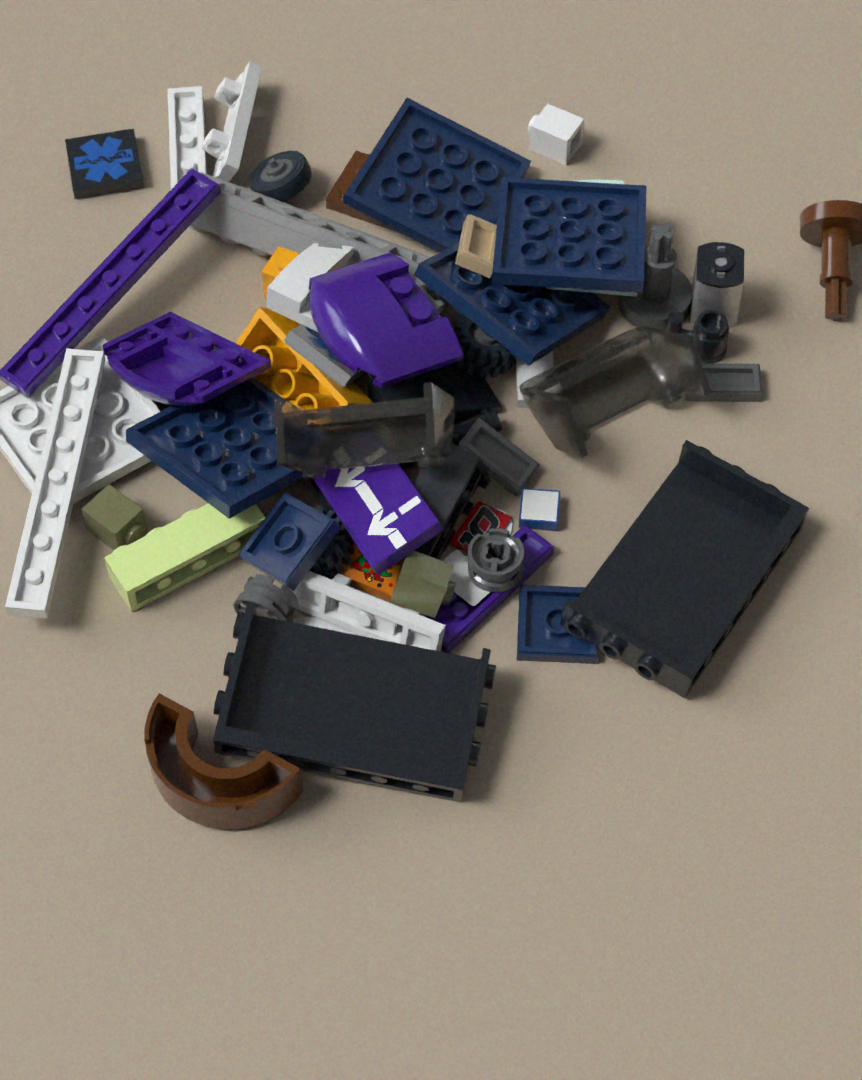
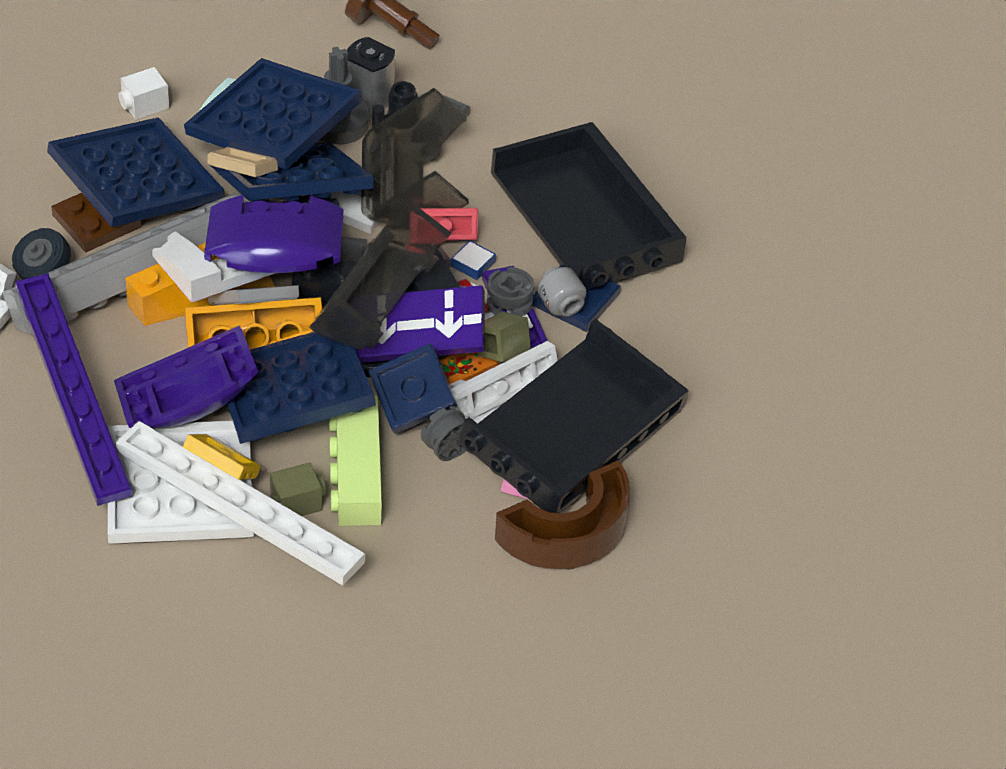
camera: 65 degrees left, 10 degrees down
(107, 407) = (222, 456): none -> yellow tile
(530, 604) = (562, 291): none -> light grey head
(557, 458) = (459, 221): none -> coral slope

